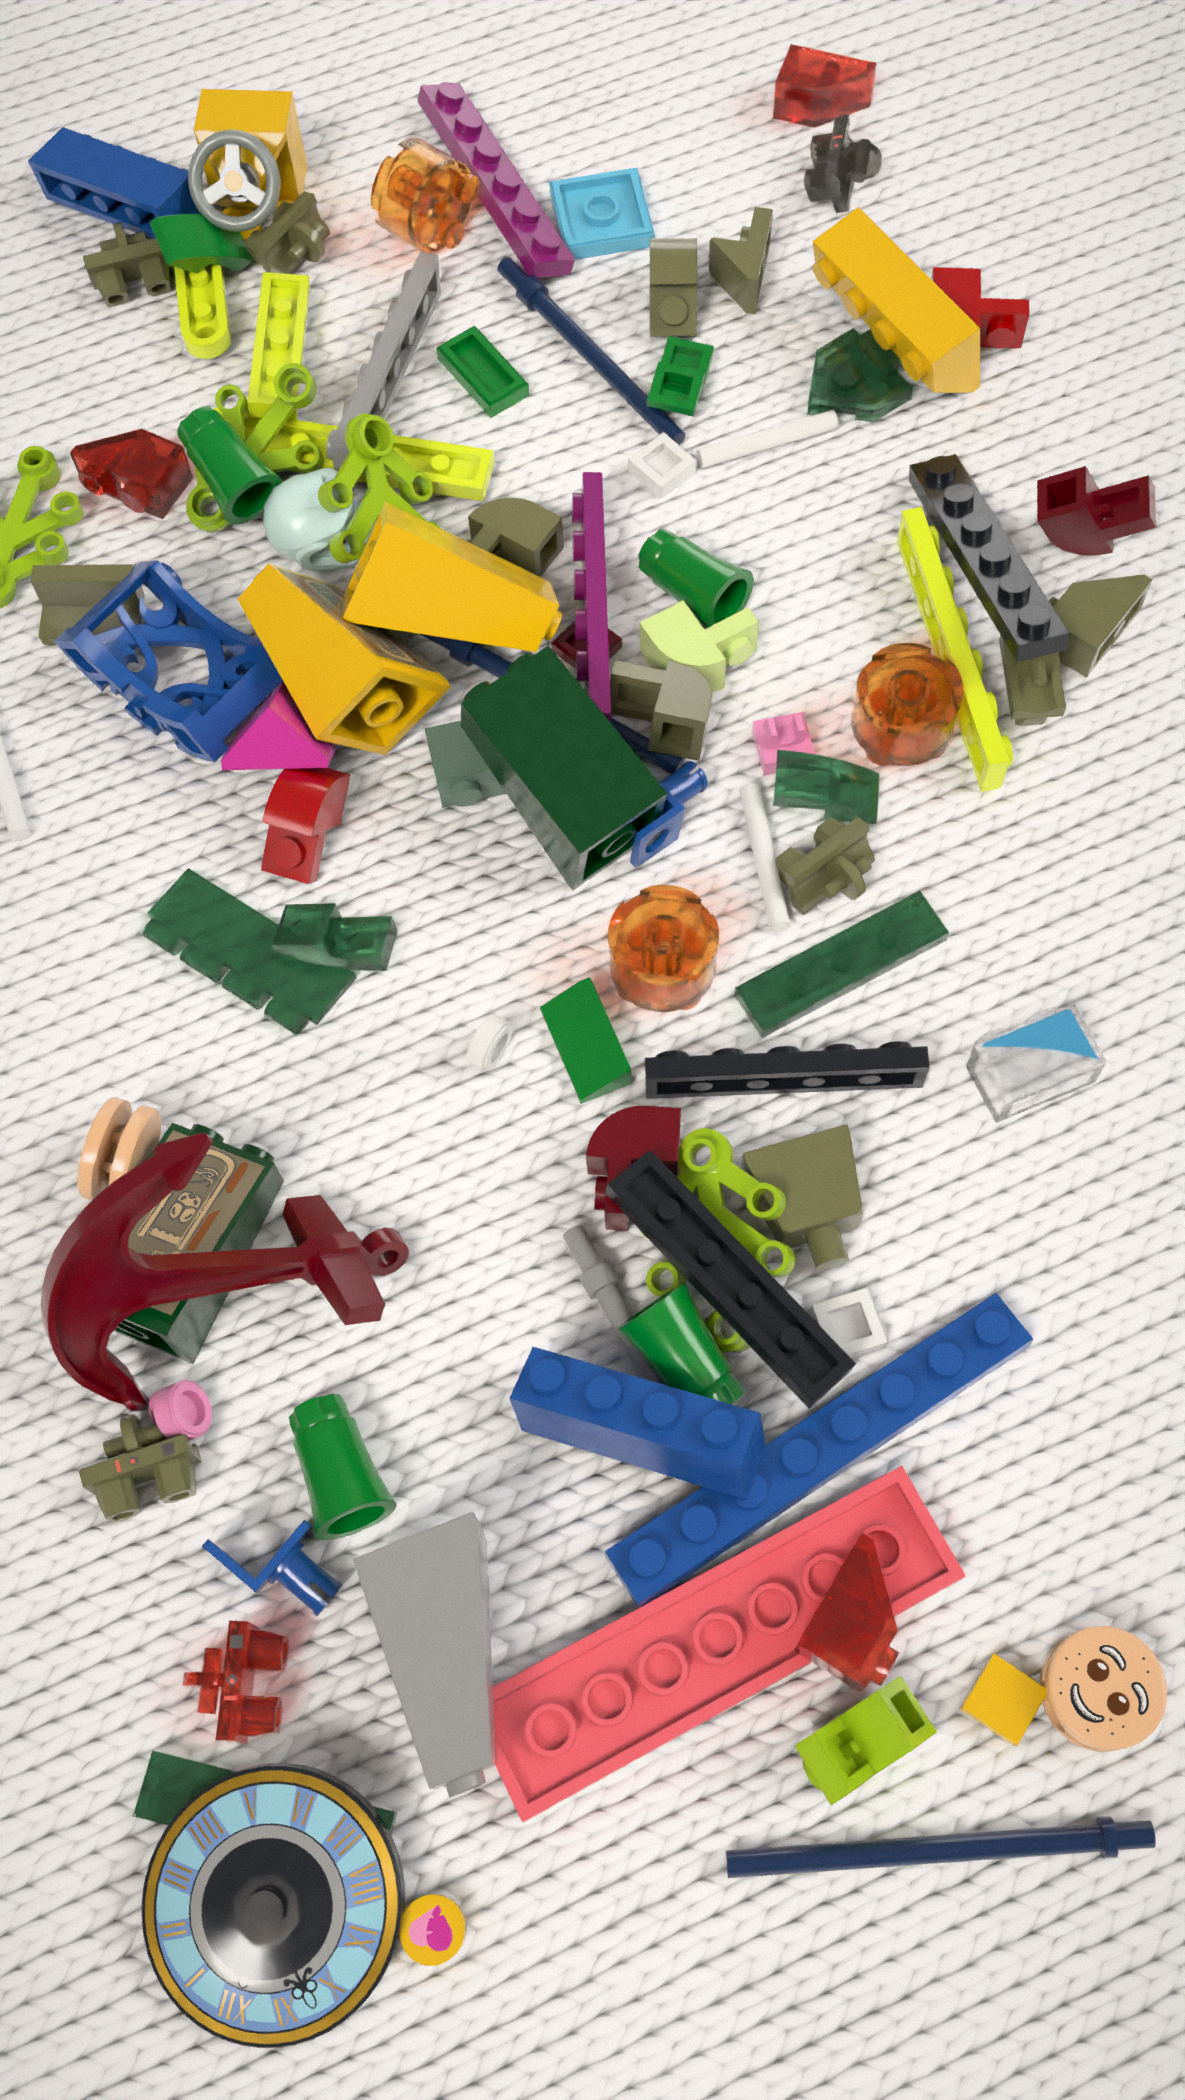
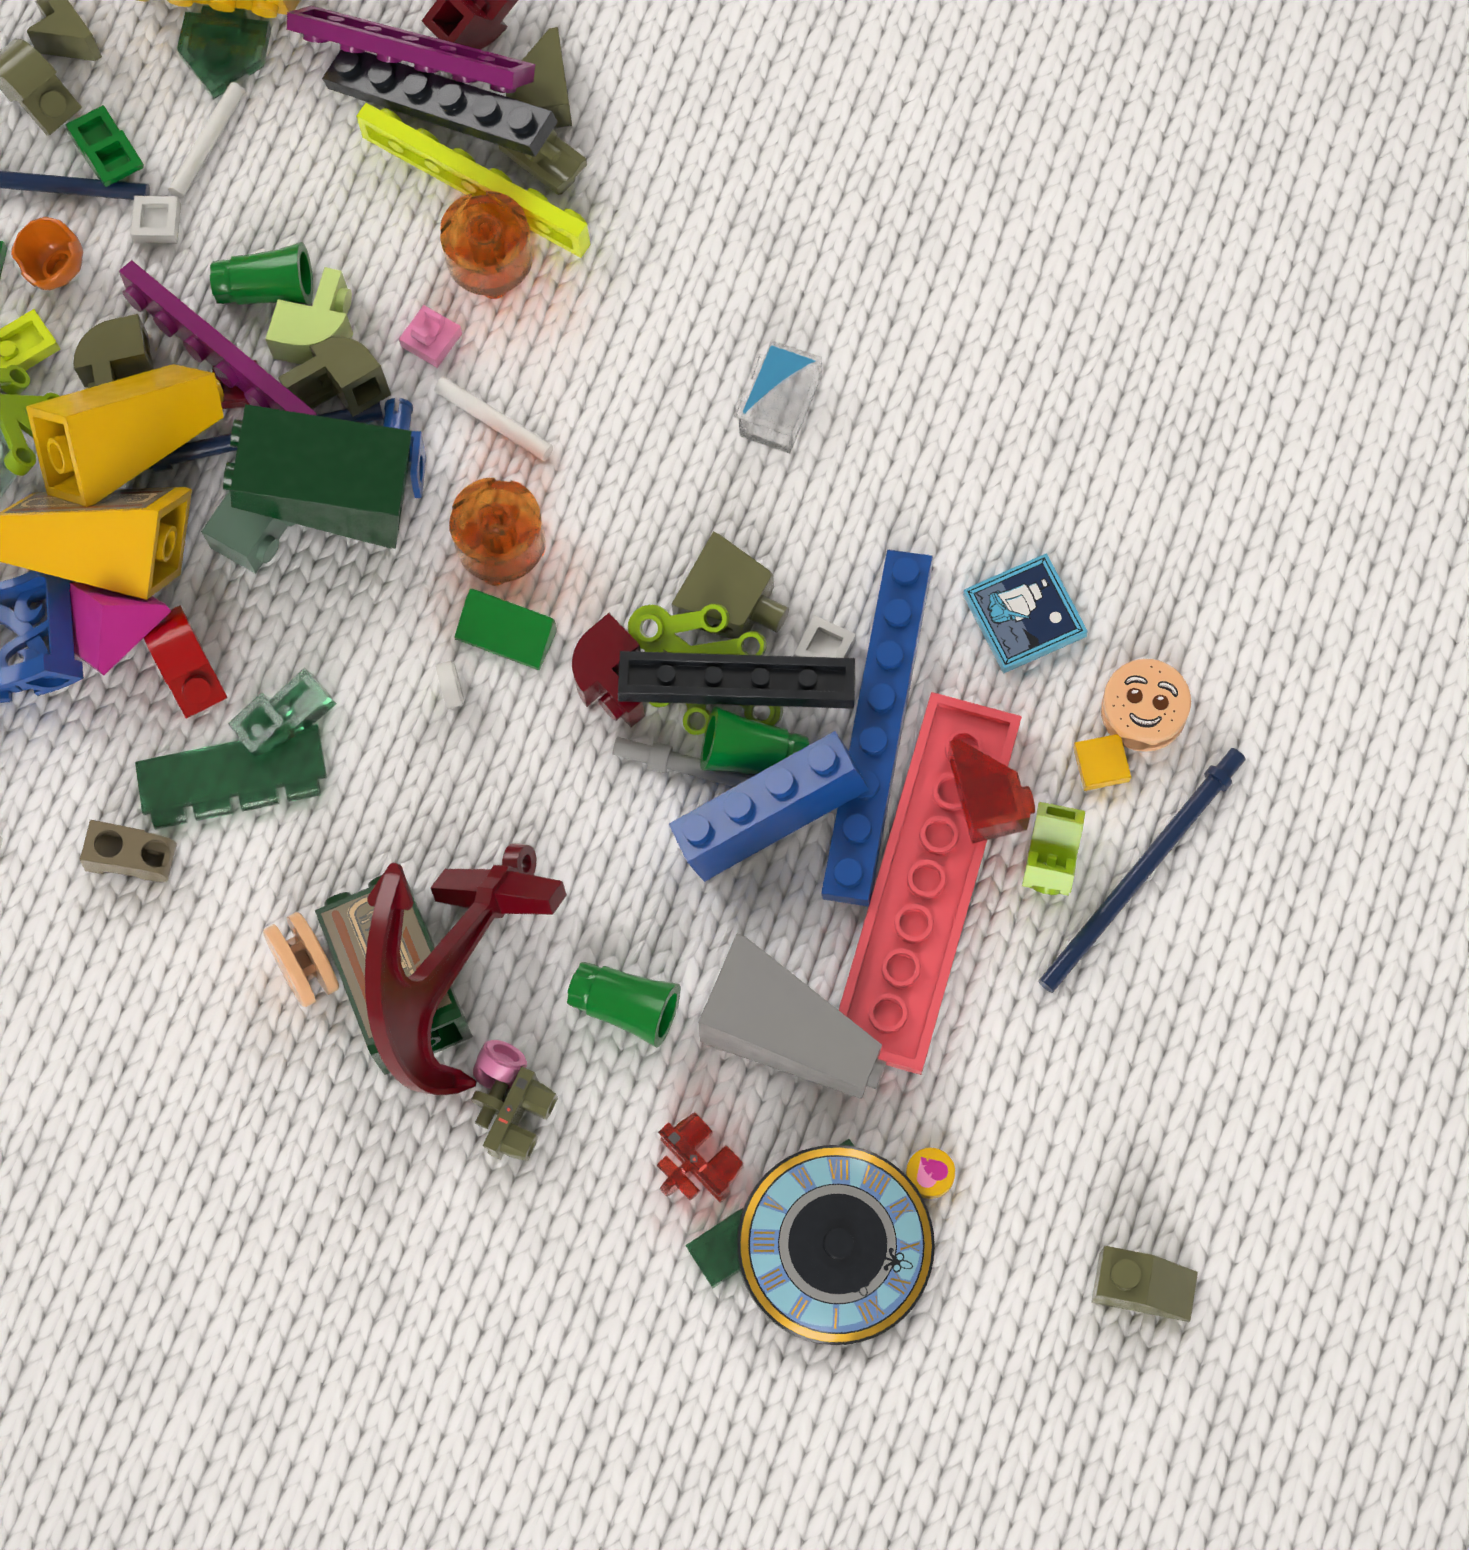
camera: 45 degrees left, 5 degrees up
(97, 931) = (127, 852): none -> dark tan leg
(288, 1567) = (652, 1079): blue bracket -> none
(548, 418) = (47, 253): none -> orange hair
(786, 1071) = (641, 536): black plate -> none
(827, 785) = (485, 339): clear green slope -> none
(830, 868) = (545, 388): olive hips -> none
(840, 964) = (607, 442): clear green tile -> none
(1013, 505) = (400, 45): none -> magenta plate
(1071, 1480) = (1025, 613): none -> tile

